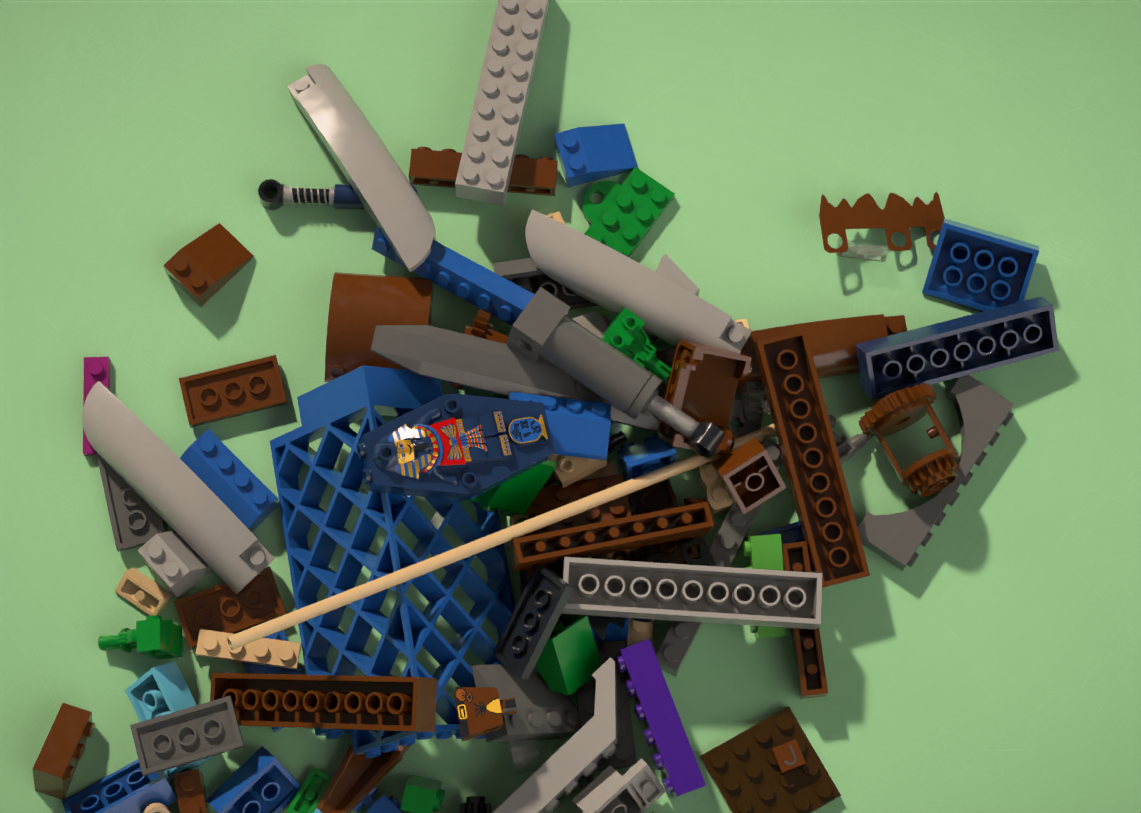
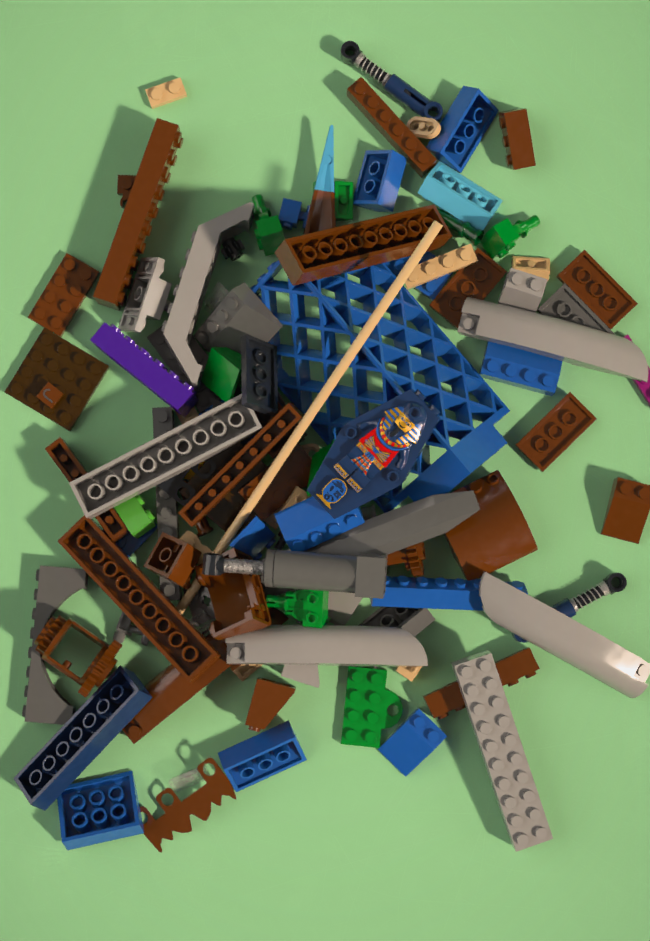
camera: 150 degrees right, 10 degrees up
(84, 522) = (597, 289): none -> reddish brown plate
(187, 735) = (441, 183): dark grey plate -> none
(193, 675) = (463, 228): none -> dark green pin
(481, 710) = (256, 292): reddish brown torso -> none
(730, 275) = (267, 702): none -> reddish brown slope
(769, 228) = (261, 756): none -> blue slope

